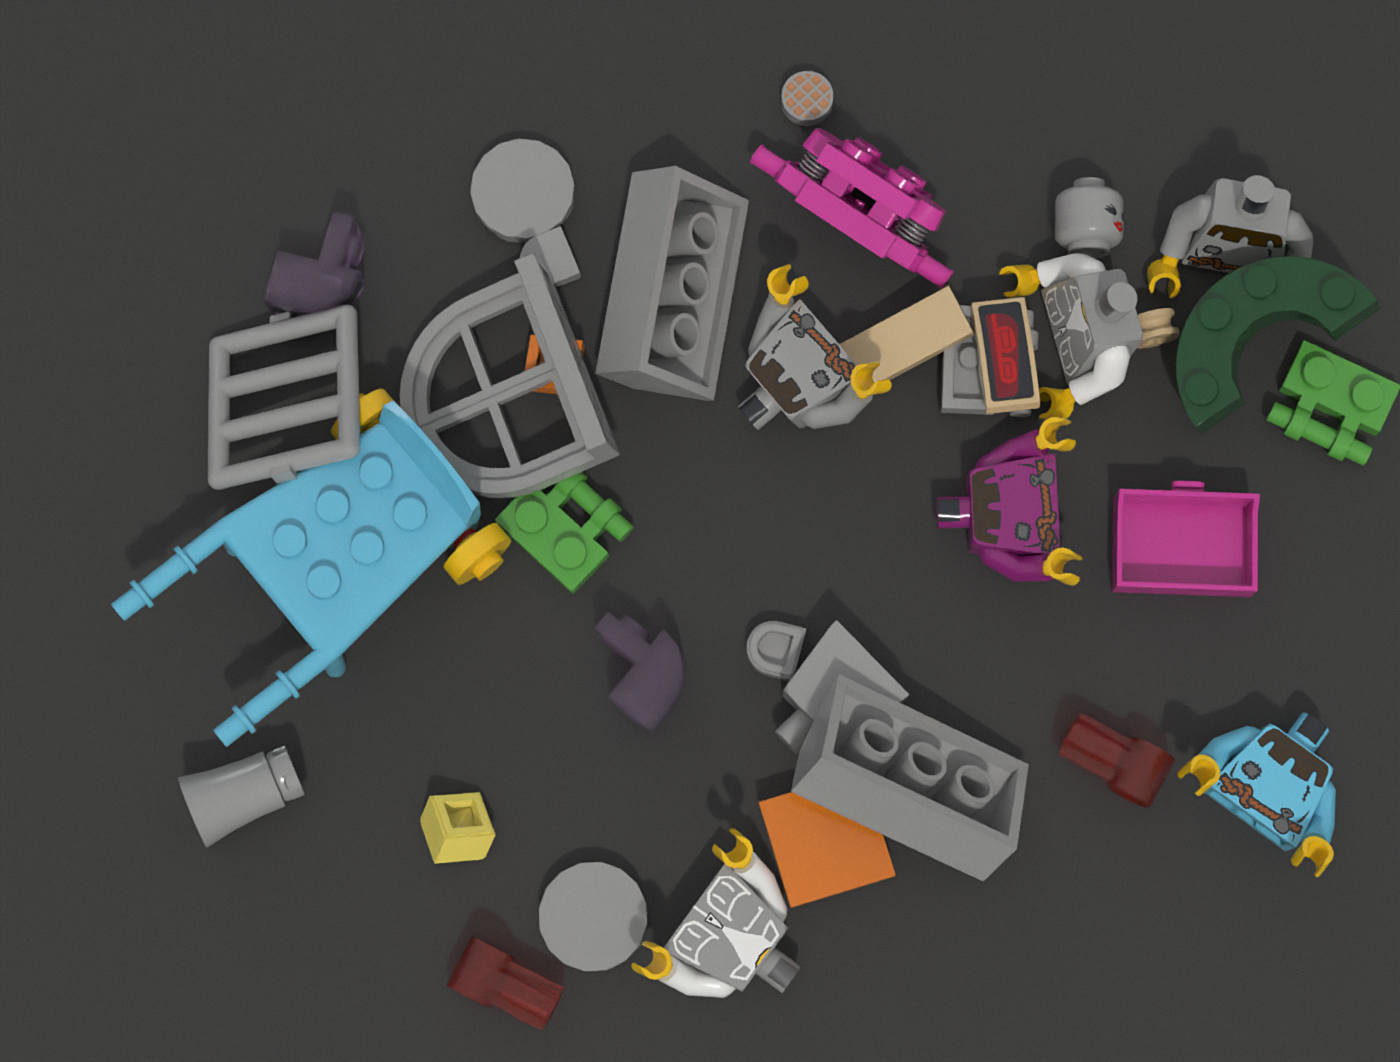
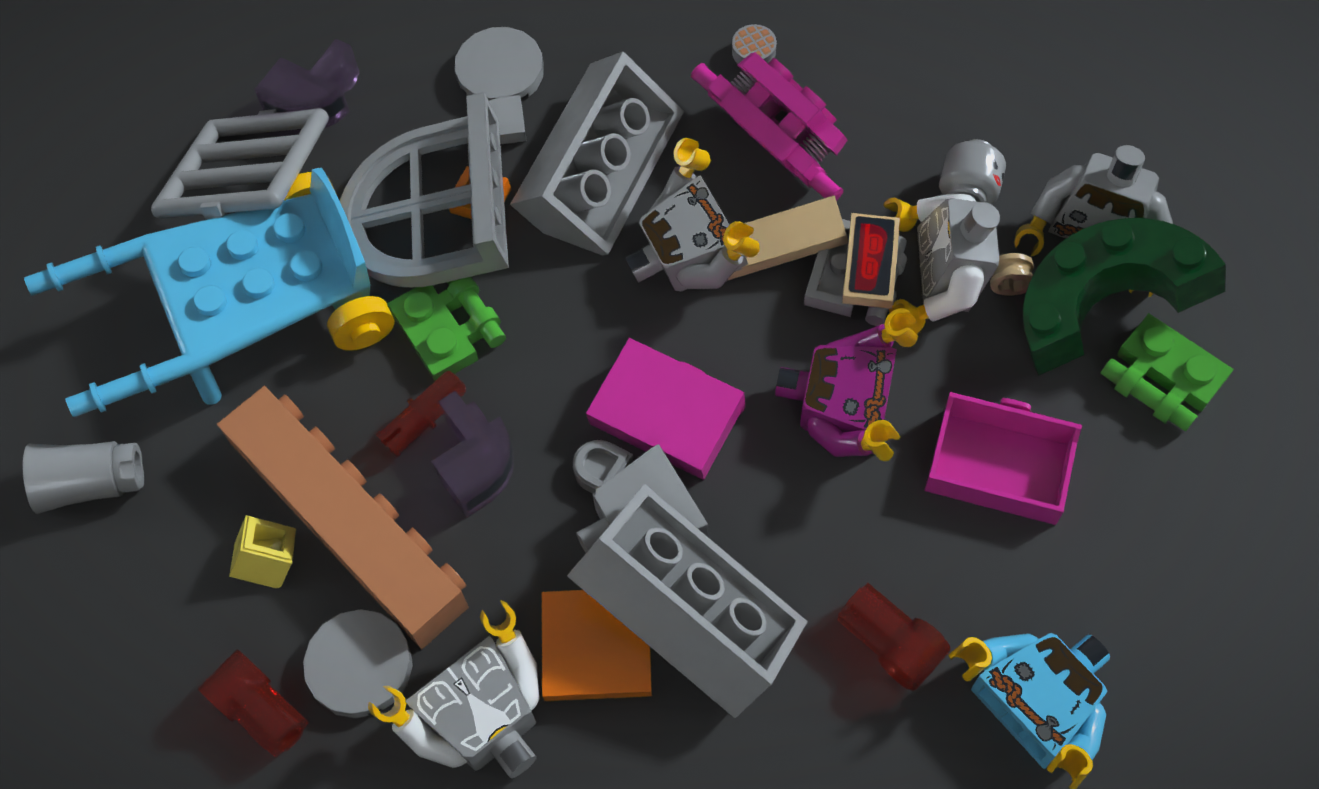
camera: 15 degrees right, 15 degrees down
(527, 768) = (345, 517): none -> nougat brick
(573, 636) = (419, 414): none -> clear red axle
(828, 569) = (666, 403): none -> dark pink container

